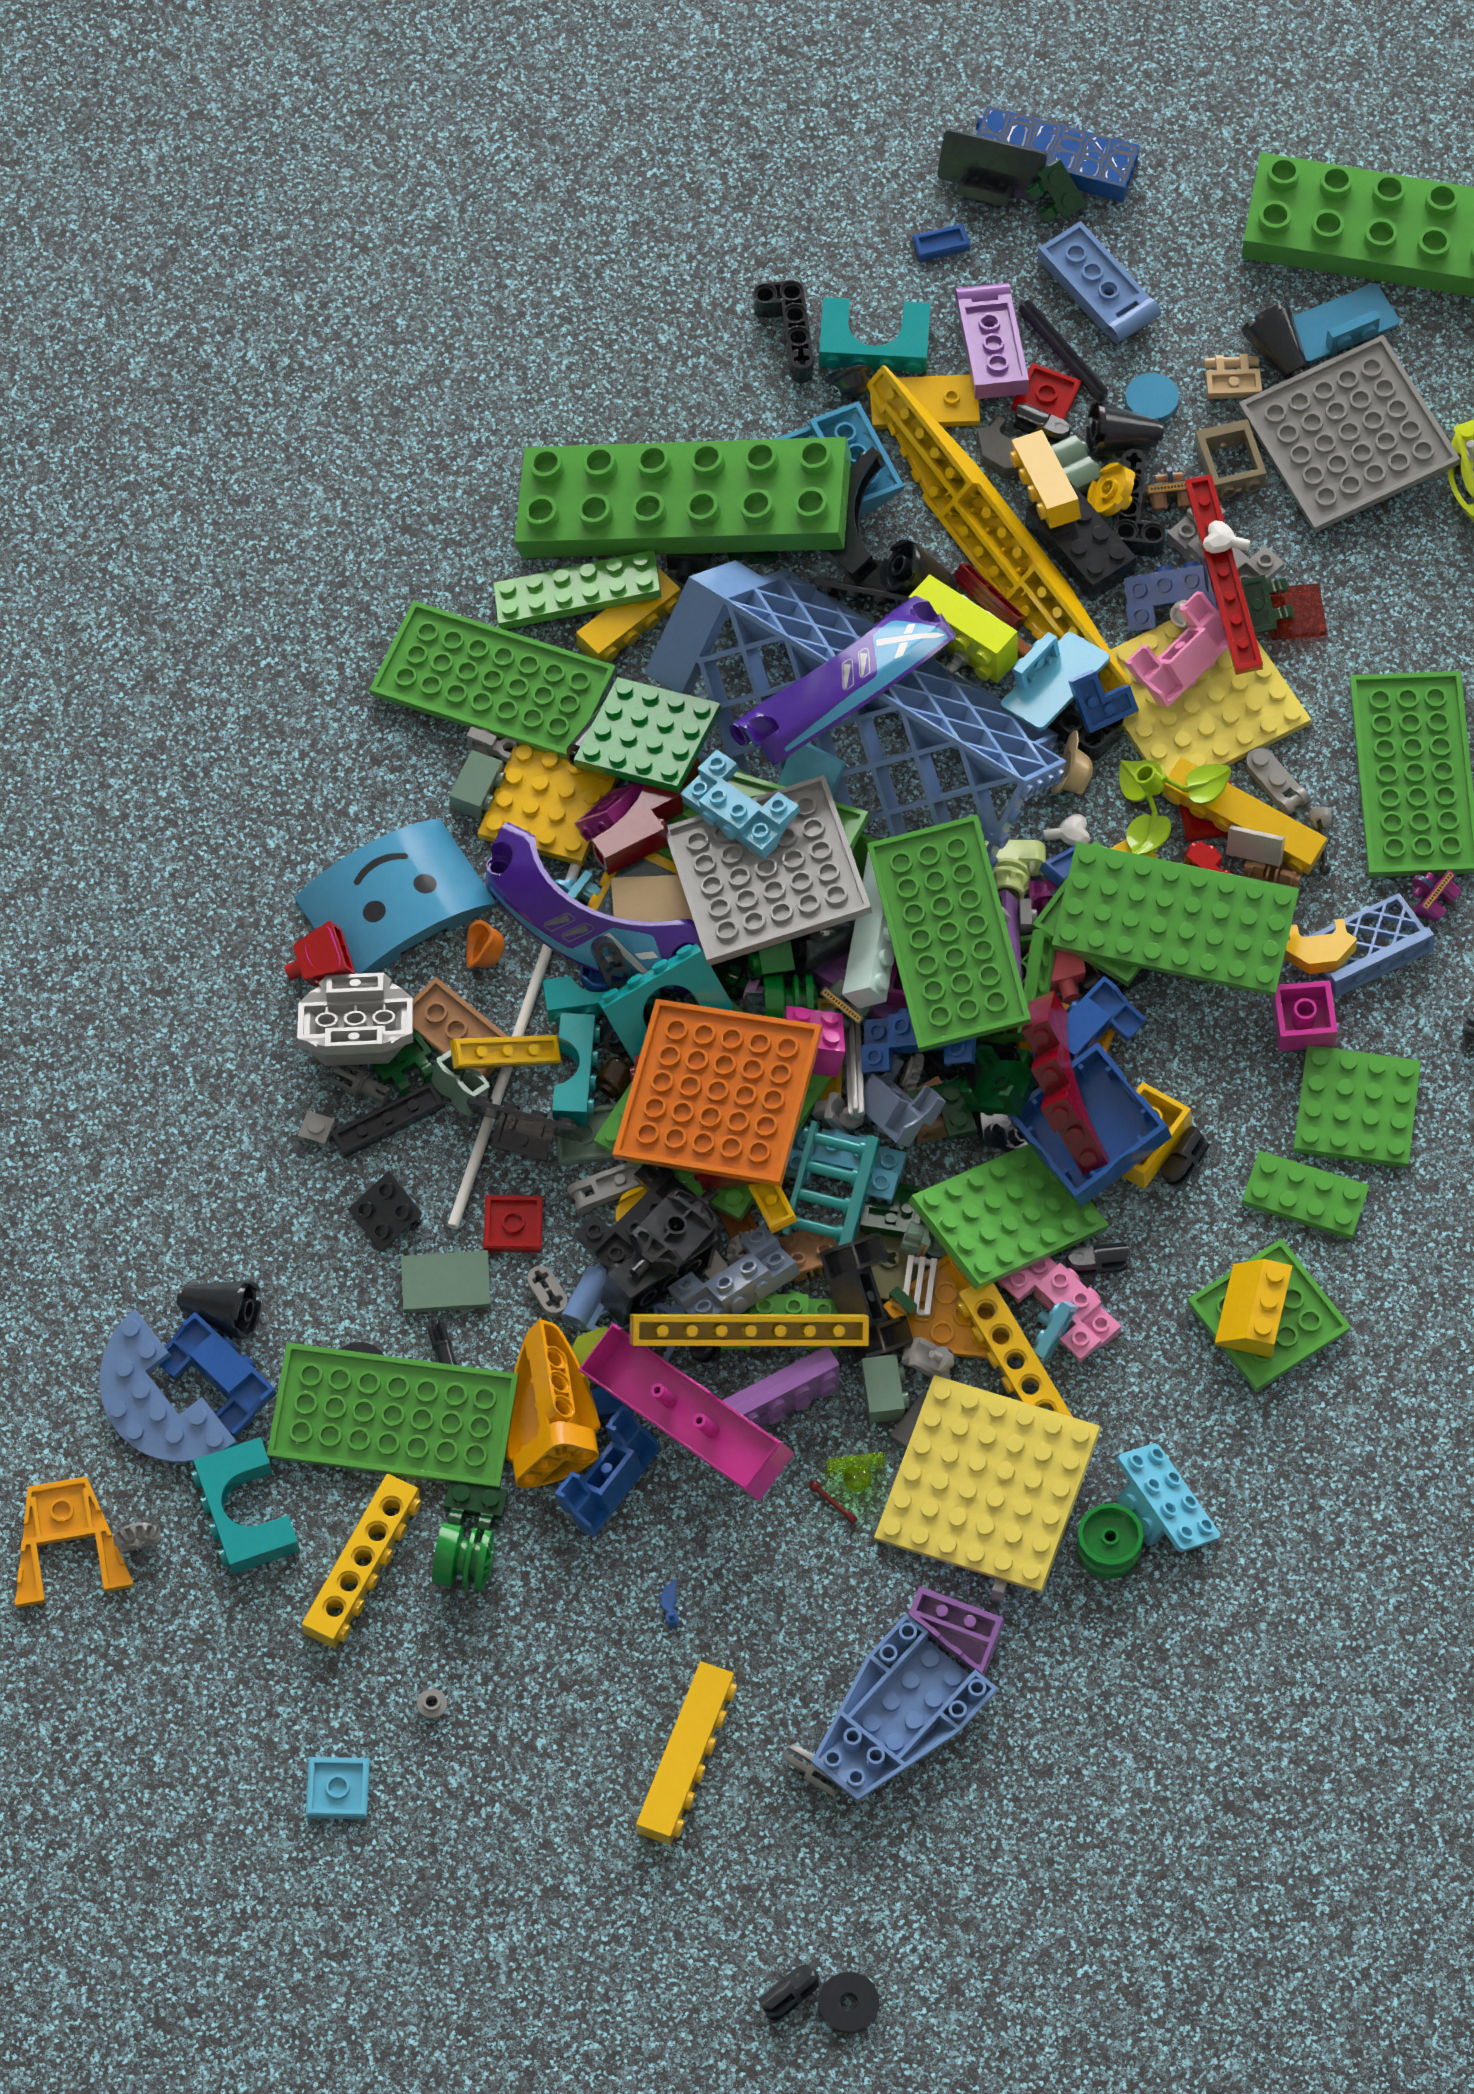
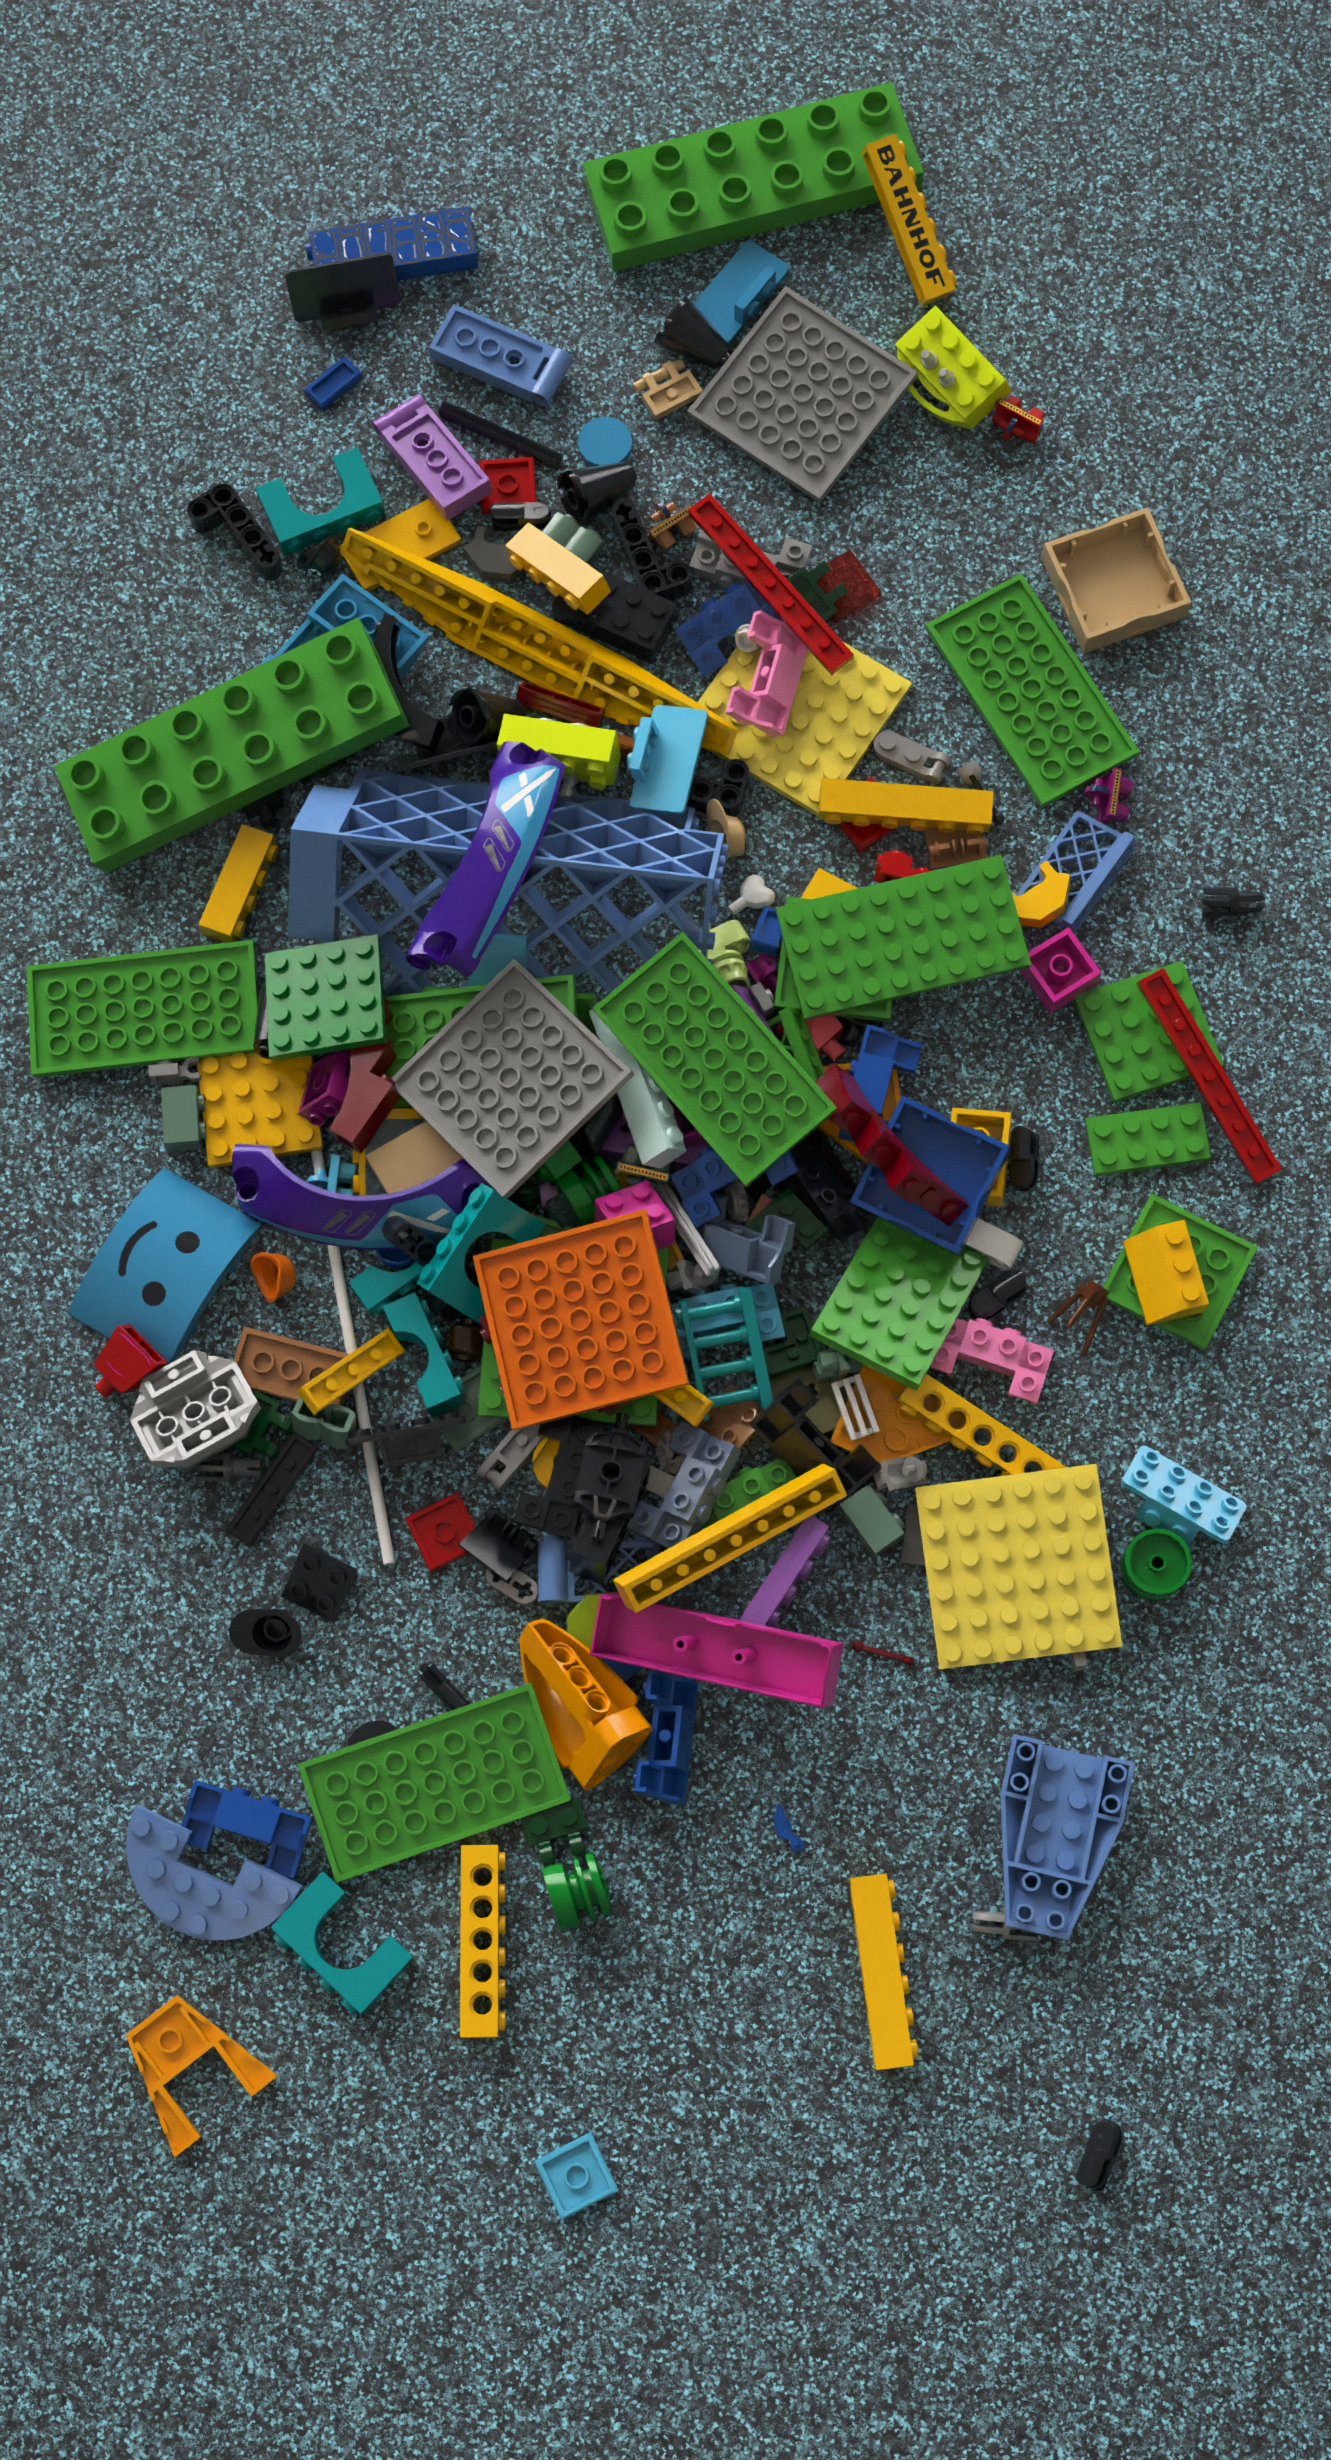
camera: 25 degrees left, 10 degrees up
(137, 1536) = (256, 2030): light grey gear -> none
(223, 1305) = (215, 1757): black cone -> none
(316, 1129) = (210, 1532): light grey plate -> none
(317, 1226) = (265, 1632): none -> black piece
(432, 1712) = (627, 2054): light grey plate -> none
(445, 1281) = (411, 1621): sand green tile -> none
(554, 1252) = (499, 1543): none -> black hinge
(577, 589) = (176, 882): bright green plate -> none
(735, 812) = (451, 1037): medium azure bracket -> none
(848, 1985) = (1175, 2134): black tile -> none
(856, 1469) = (888, 1612): clear neon green tile -> none
(903, 1302) = (853, 1434): dark green tile -> none
(958, 1627) = (1066, 1720): medium lavender wedge -> none
(1002, 1085) = (831, 1176): dark green panel -> none
(1057, 1326) = (1000, 1376): medium azure plate -> none
(1061, 189) = (419, 281): dark green plate -> none
(1099, 708) = (723, 765): blue plate -> none
(1112, 489) = (631, 549): yellow plate -> none
(1118, 1213) = (995, 1243): none -> white beam
(1146, 779) = (794, 811): lime plant -> none
(1178, 1295) = (1091, 1296): none -> reddish brown plant
(1222, 538) = (754, 550): white rock -> none
(1226, 436) = (691, 449): dark tan window -> none
(1255, 845) = (932, 829): light grey tile -> none
(1386, 1164) = (1209, 1076): none -> red plate

